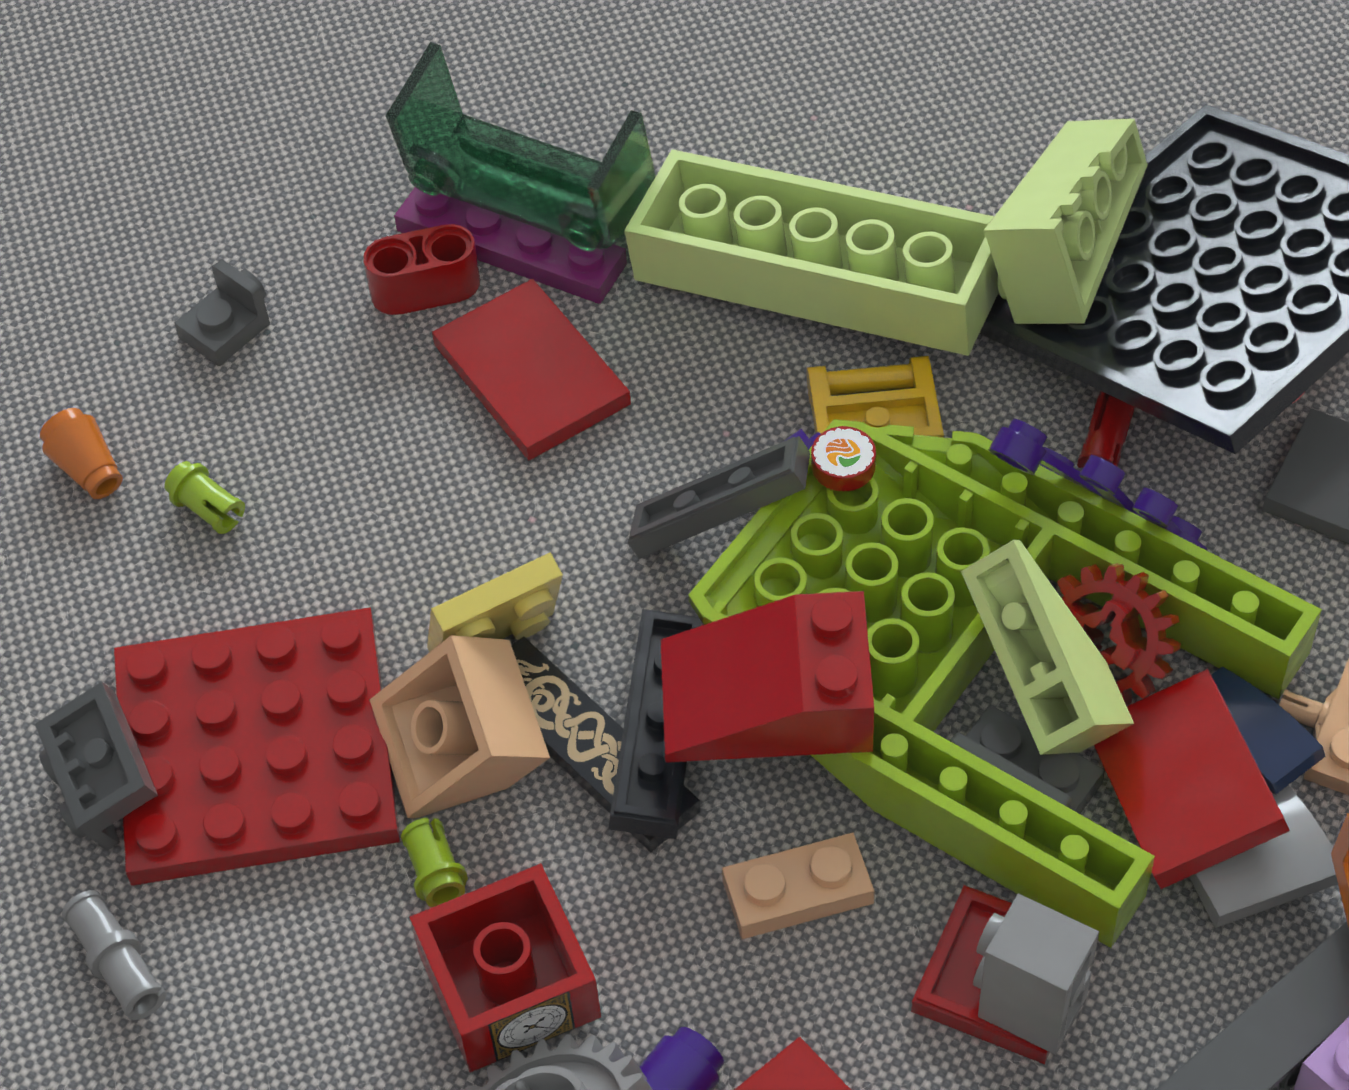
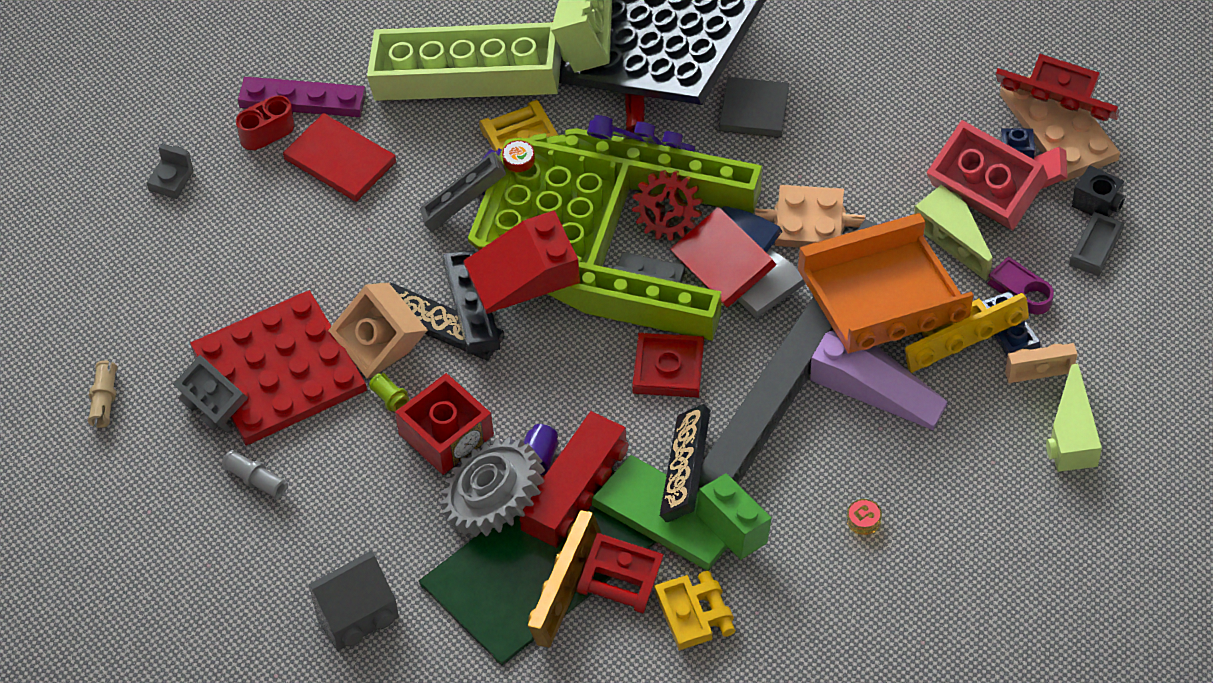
camera: 20 degrees left, 0 degrees up
(81, 452) = (127, 256): orange cone -> none
(192, 487) = (200, 261): lime pin -> none
(501, 607) = (379, 269): light yellow plate -> none
(512, 172) = (300, 61): clear green windscreen -> none
(798, 885) = (562, 355): light nougat plate -> none
(1034, 972) = (684, 354): light grey brick -> none
(1045, 654) = (643, 218): yellowish green slope -> none

